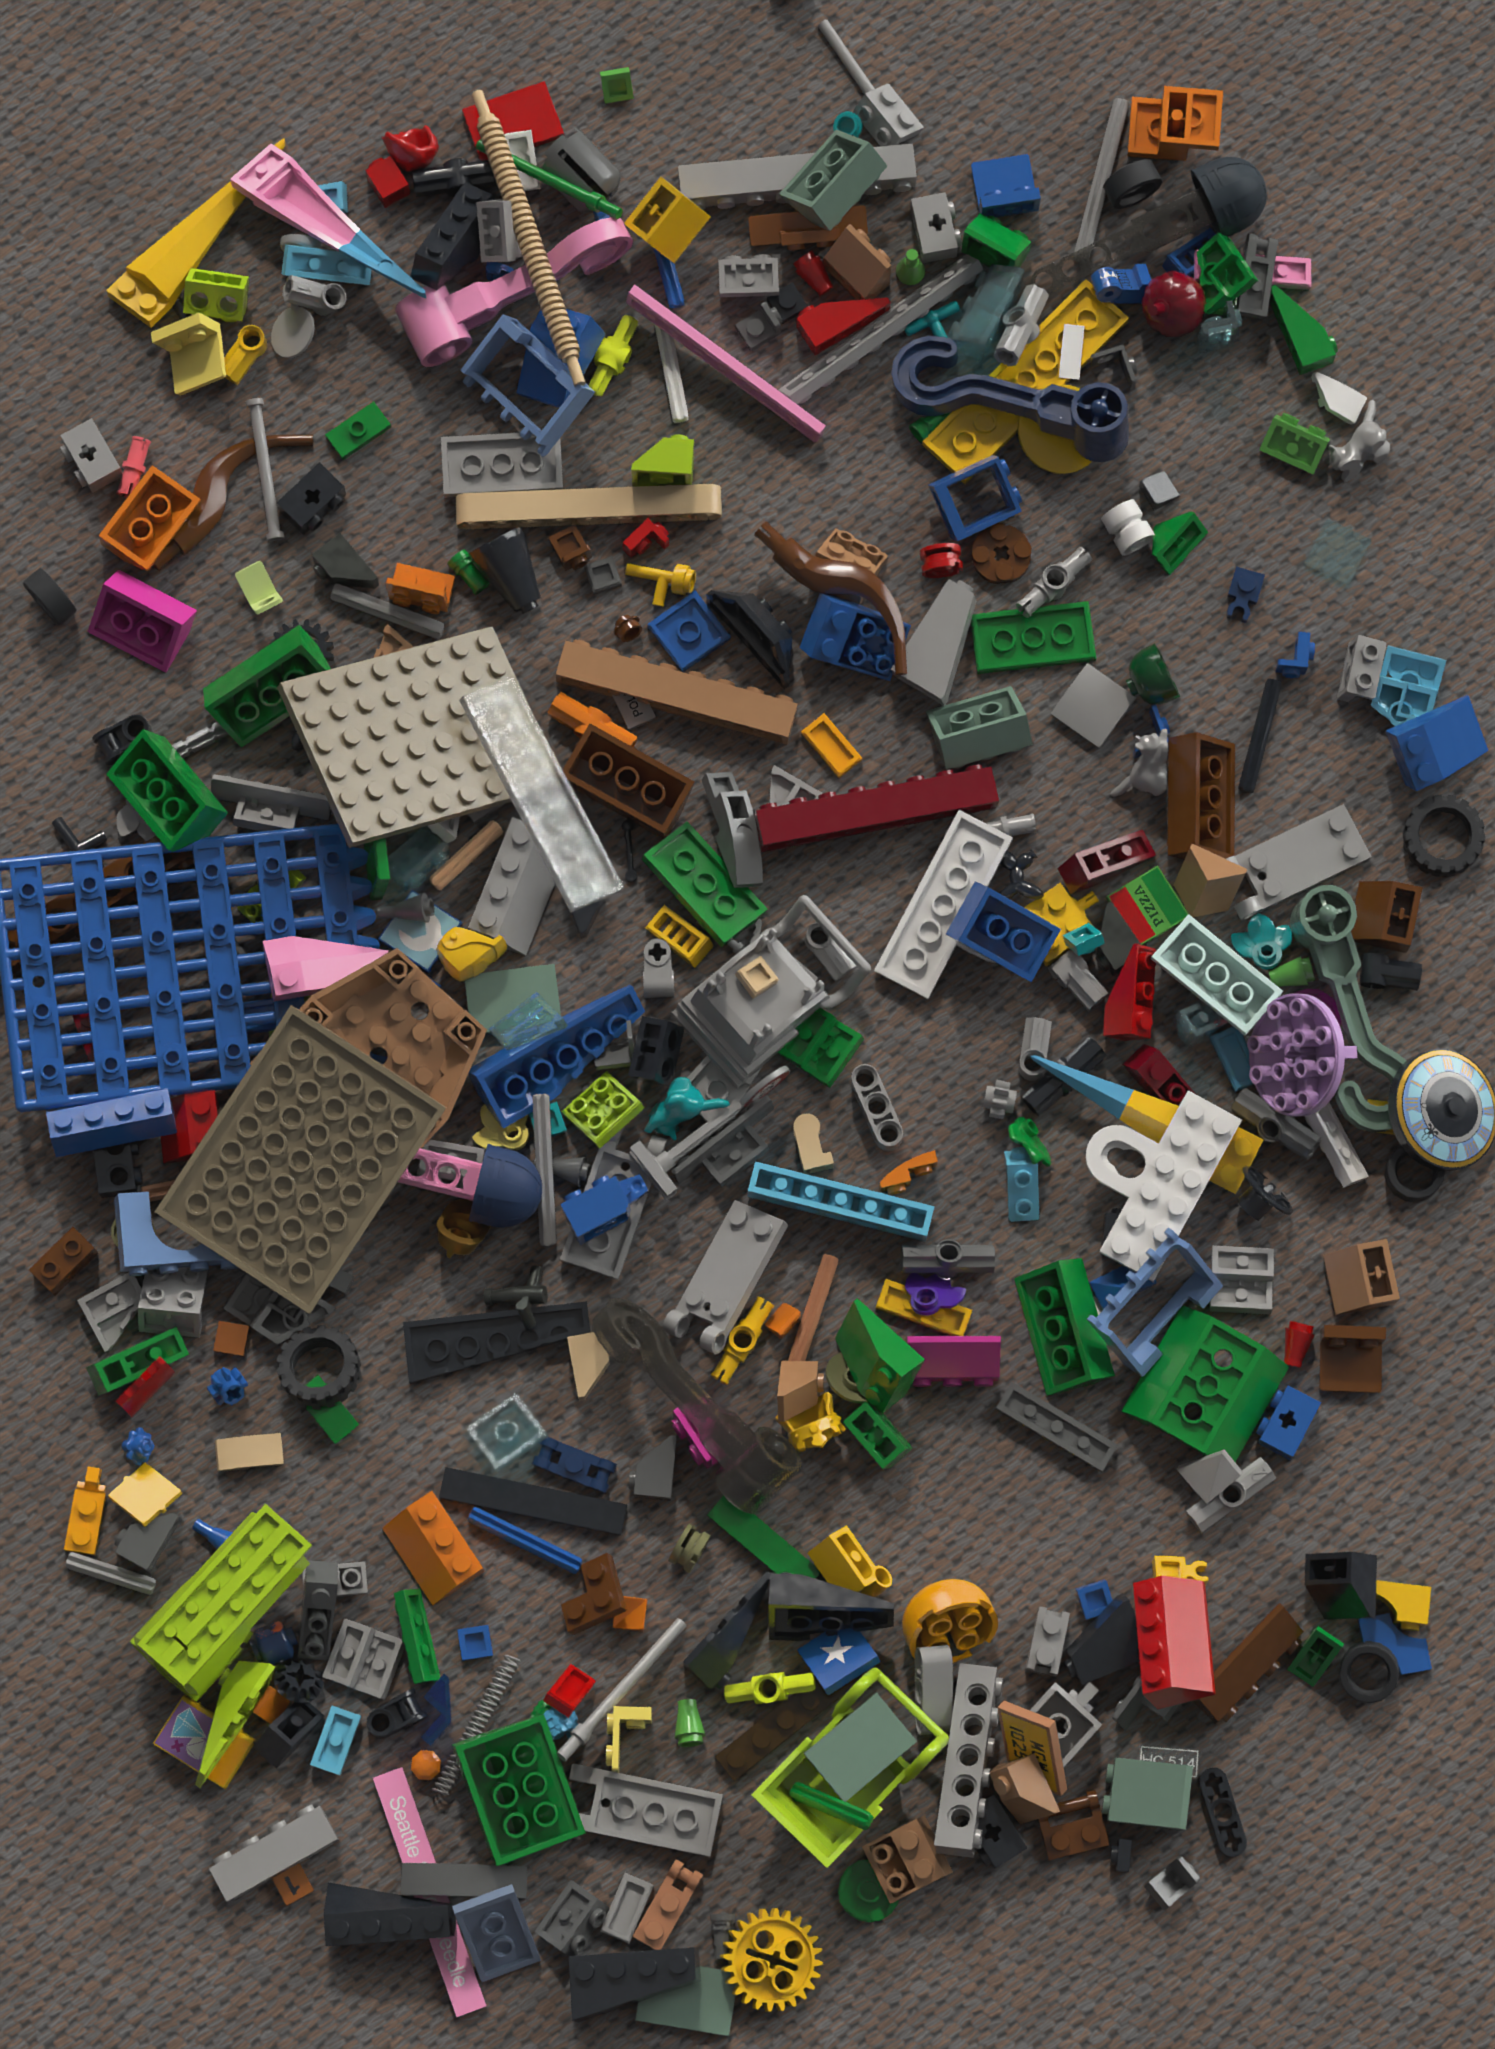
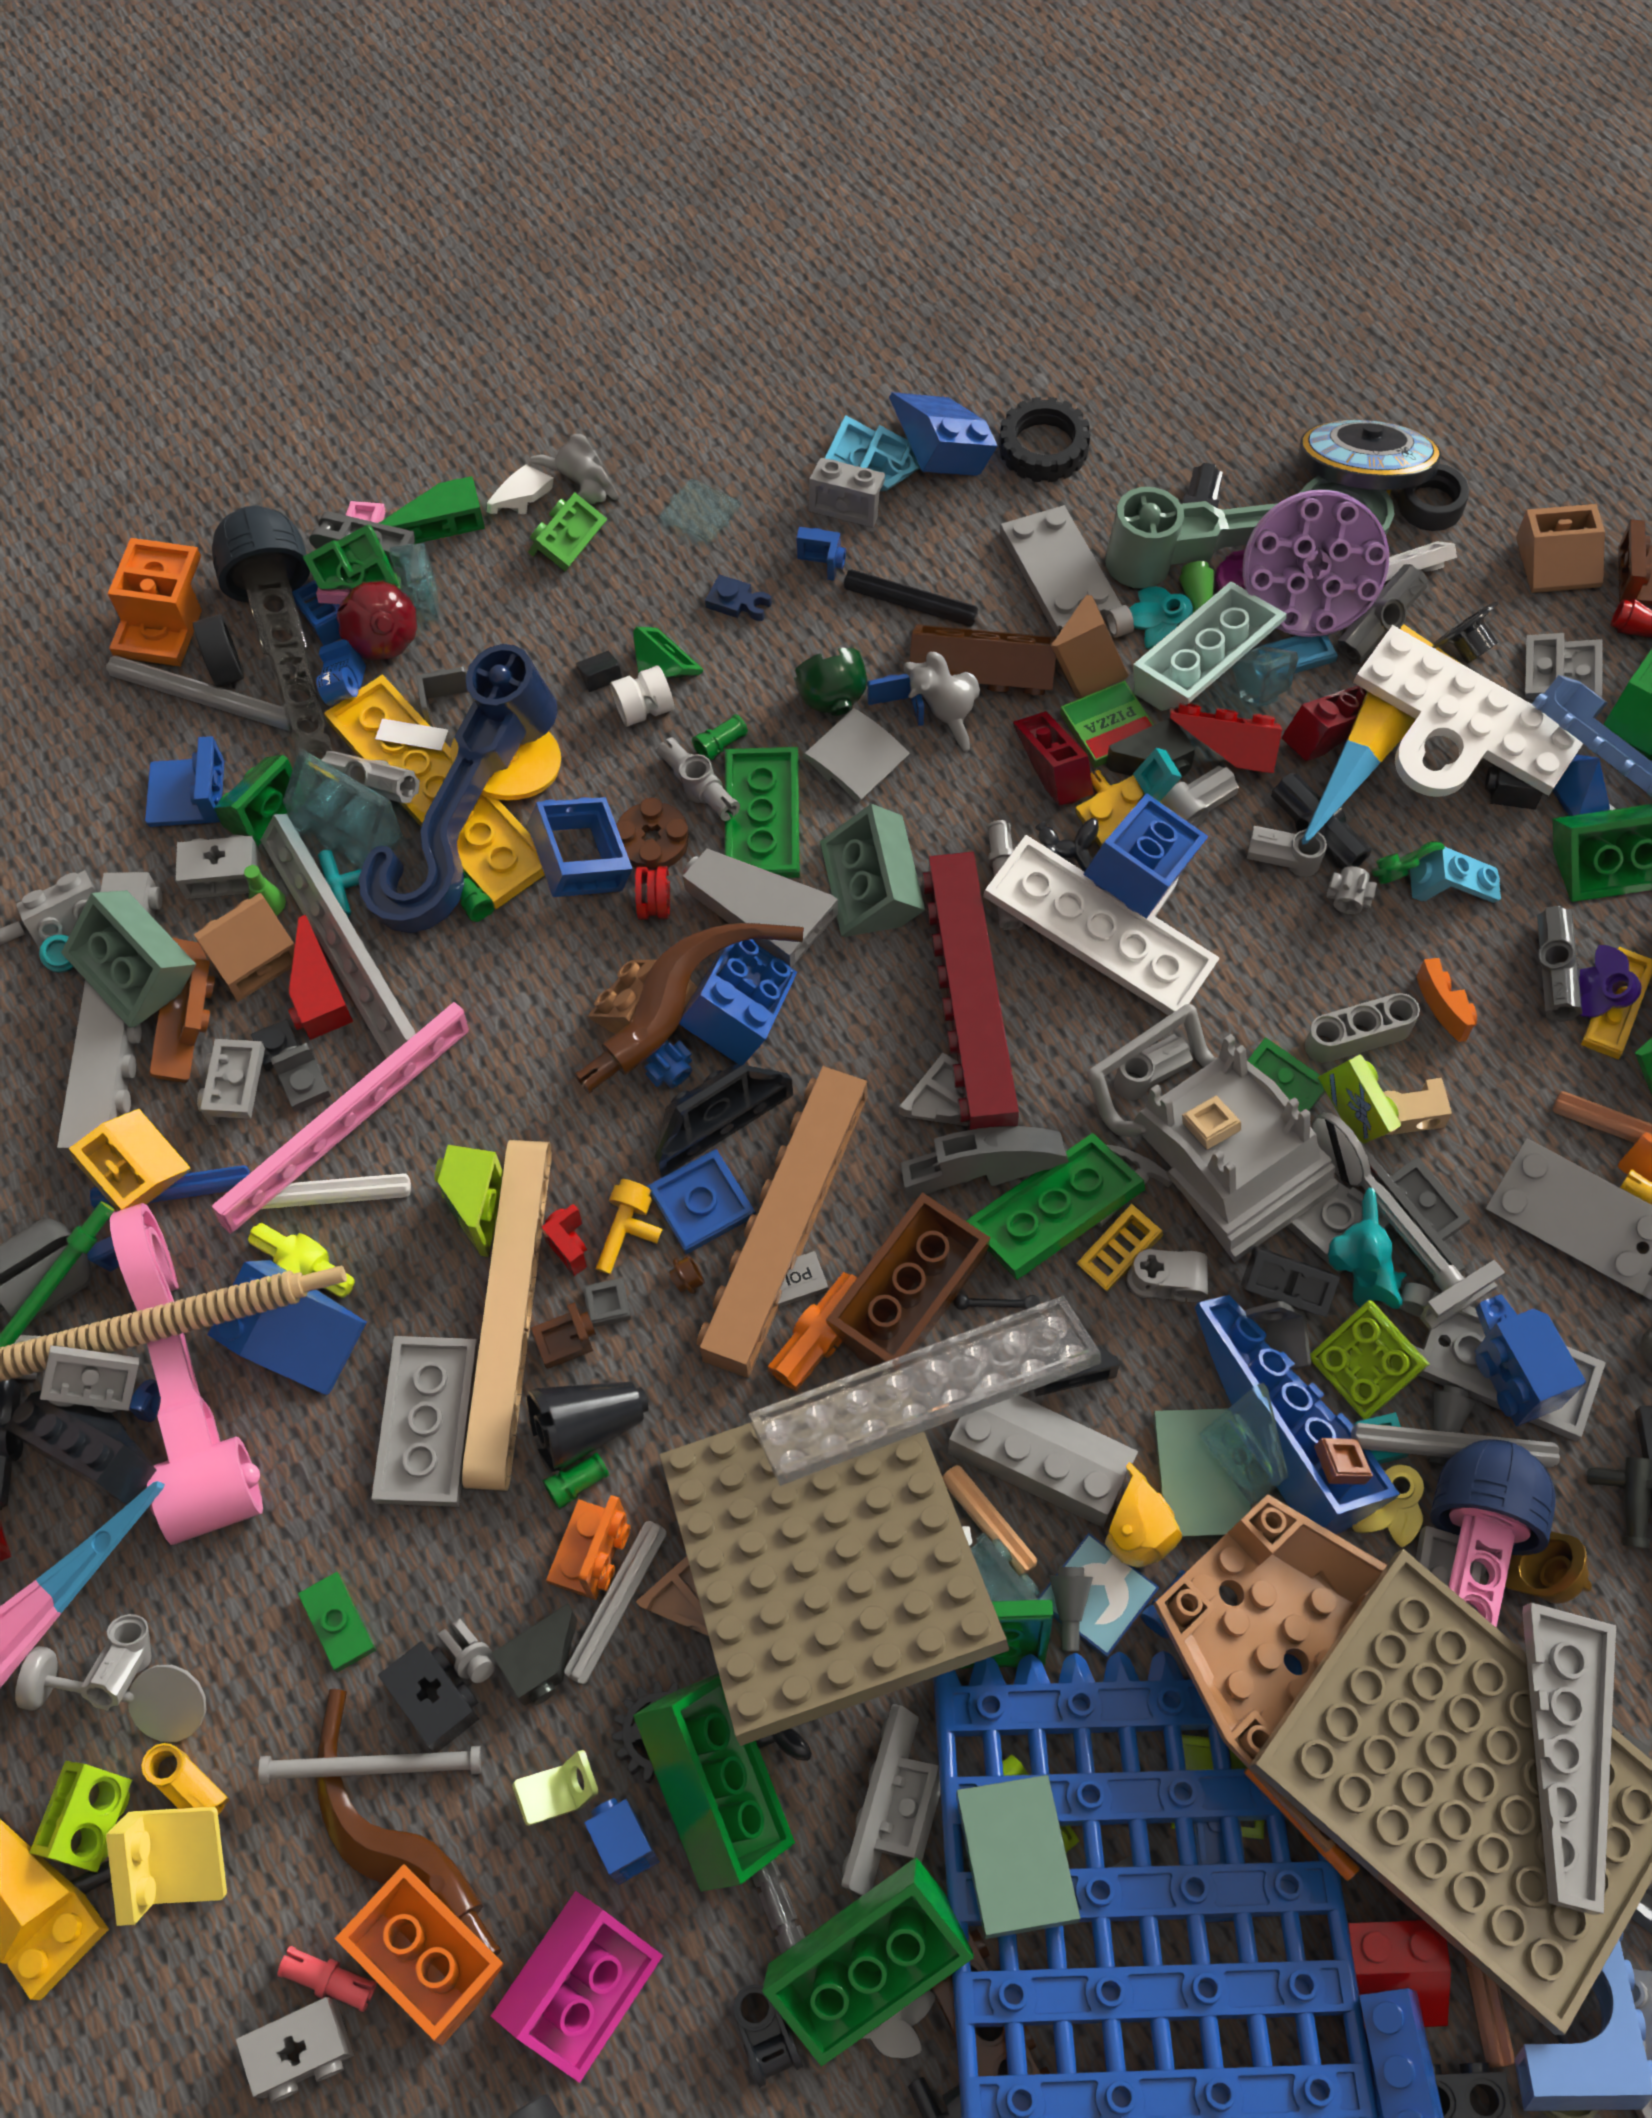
camera: 80 degrees left, 15 degrees down
(228, 632) = (620, 1840): none -> blue brick
(234, 875) = (1017, 1857): none -> sand green tile
(308, 965) = (1162, 1746): bright pink wedge -> none
(323, 265) = (76, 1642): medium azure plate -> none
(334, 520) = (474, 1660): none -> light grey arm
(353, 1220) = (1572, 1731): none -> light grey wing
(487, 350) = (231, 1377): medium blue hinge -> none
(518, 1083) = (1343, 1461): none -> dark orange tile
(793, 593) = (669, 1065): none -> blue gear
(795, 1105) = (1360, 1100): none -> lime tile
(812, 271) = (243, 1008): red cone -> none
(831, 745) = (876, 1044): light orange tile -> none
(840, 1201) = (1491, 1077): medium azure brick -> none
(1092, 589) = (713, 741): none -> green pin
(1386, 914) = (1129, 470): reddish brown slope -> none

